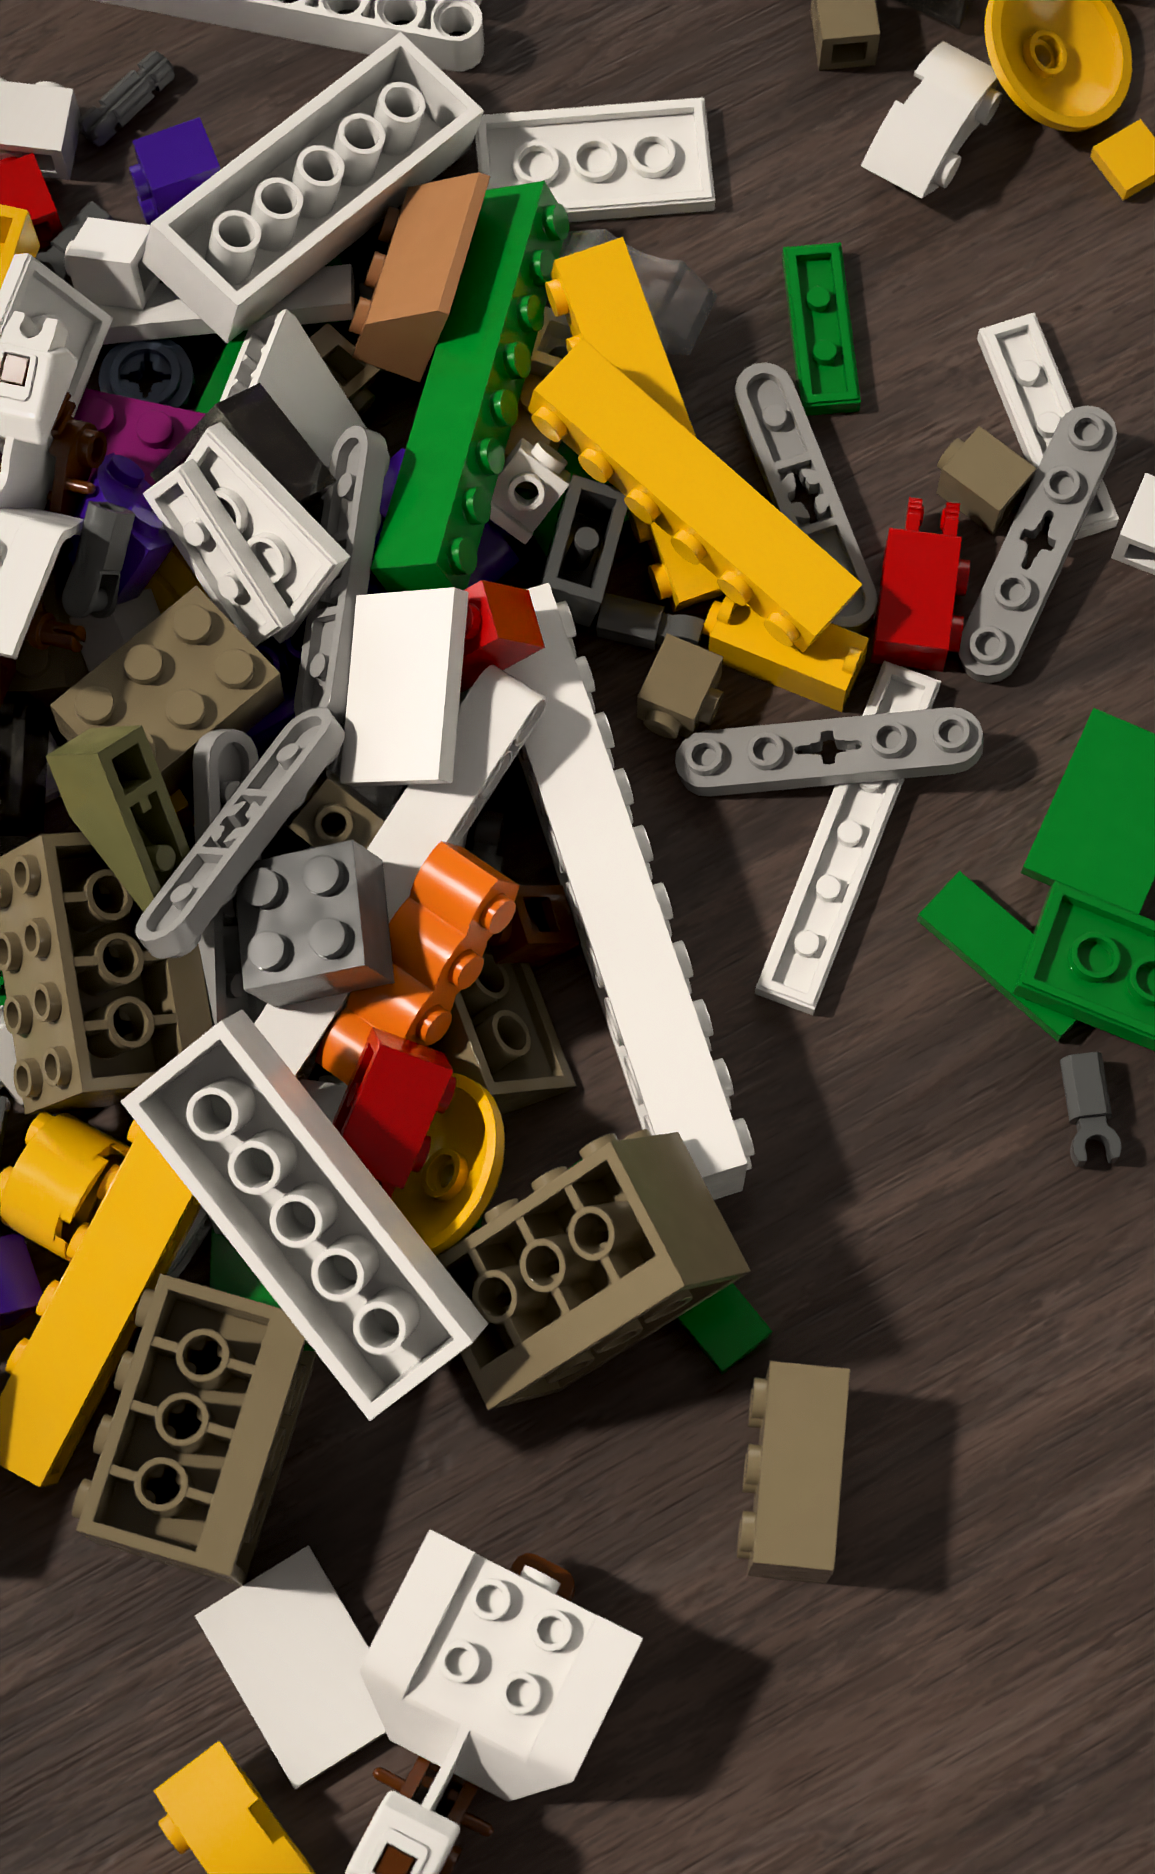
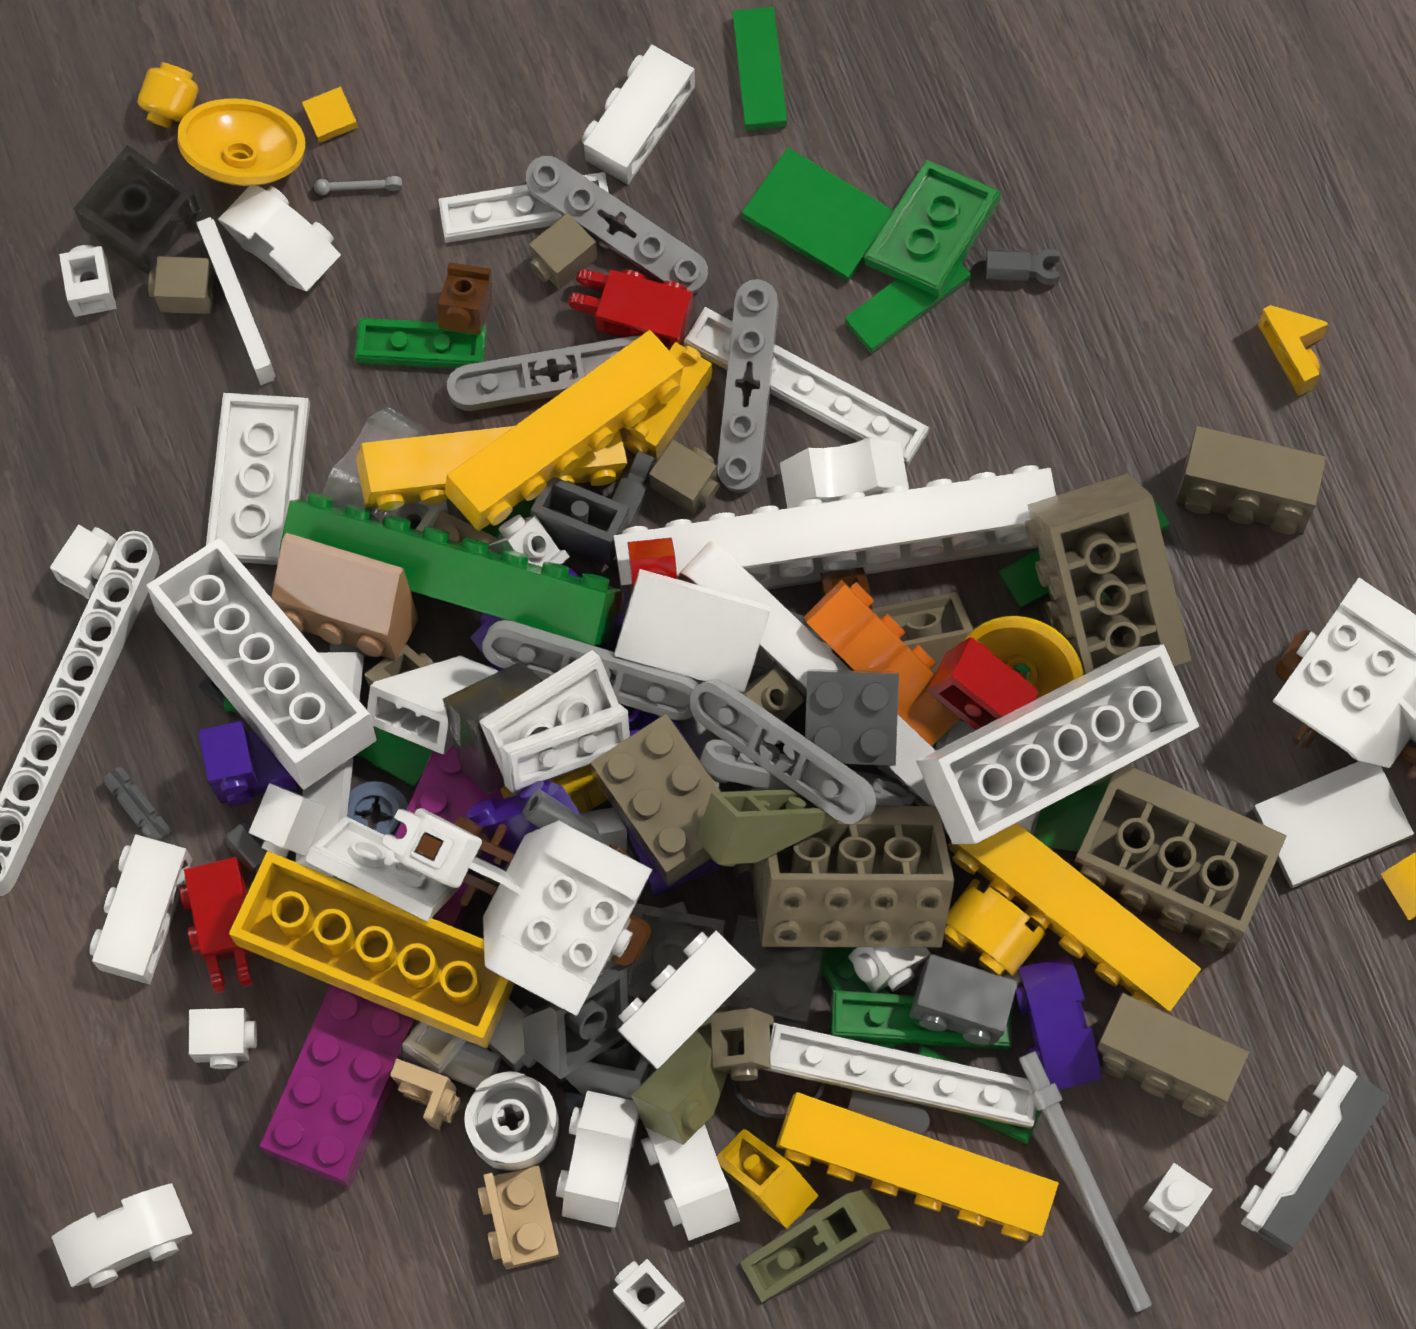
camera: 80 degrees left, 0 degrees up
(714, 900) = (837, 471): none -> white brick
(832, 87) = (236, 301): none -> white tile
(886, 364) = (465, 298): none -> reddish brown brick
(1024, 170) = (391, 183): none -> light grey hinge
(1049, 1512) = (1288, 336): none -> yellow slope

